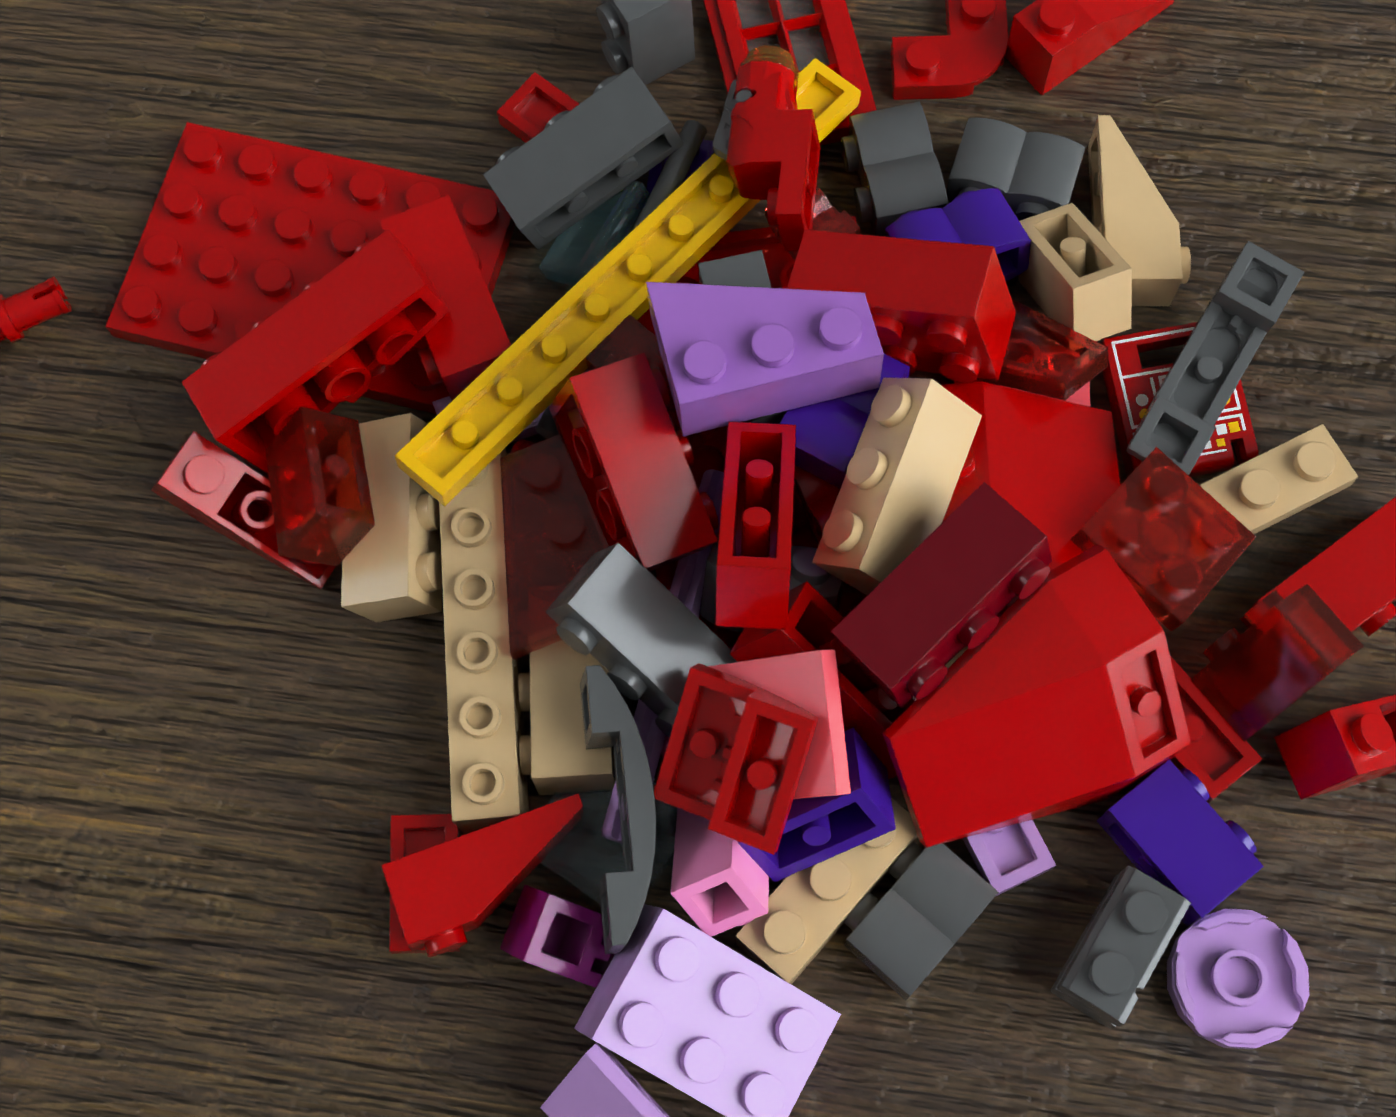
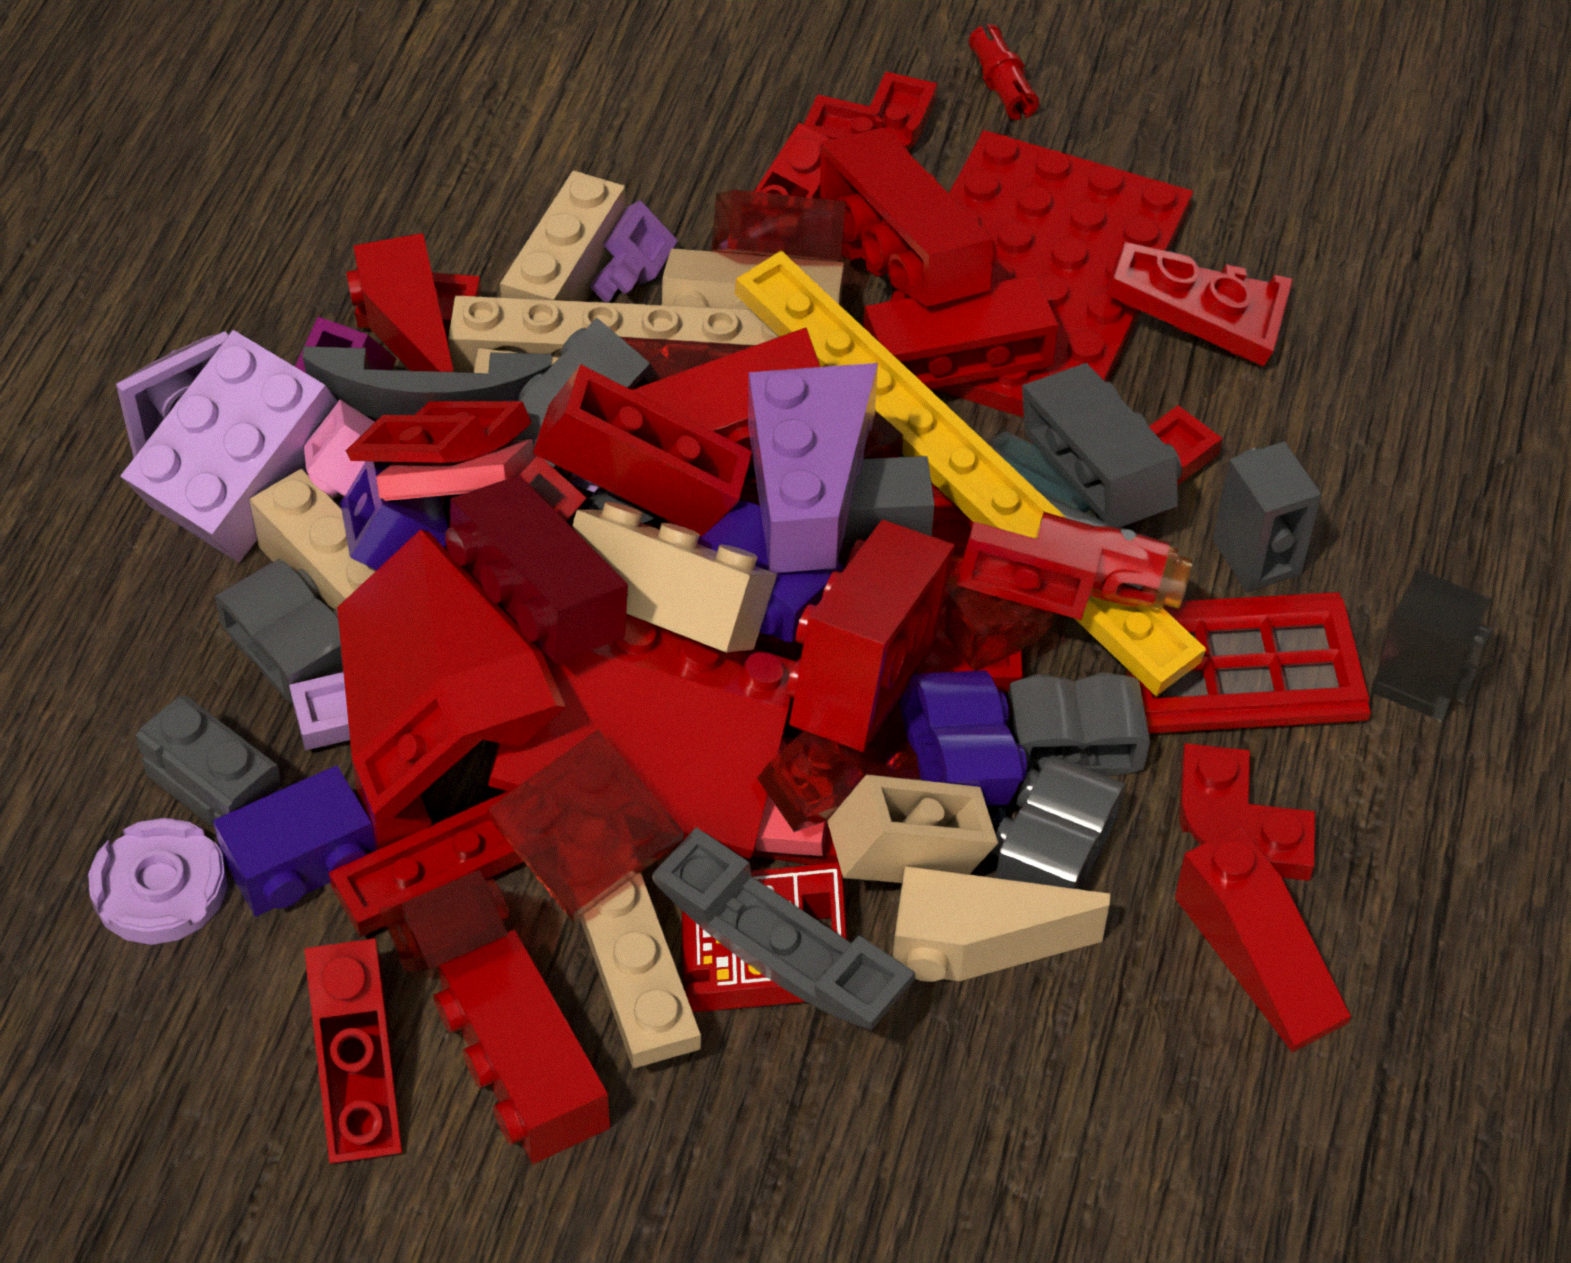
camera: 90 degrees right, 20 degrees down
(110, 438) = (899, 106): none -> red plate
(321, 655) = (639, 251): none -> medium lavender plate
(347, 726) = (568, 242): none -> tan brick
(353, 95) = (1208, 303): none -> red wing

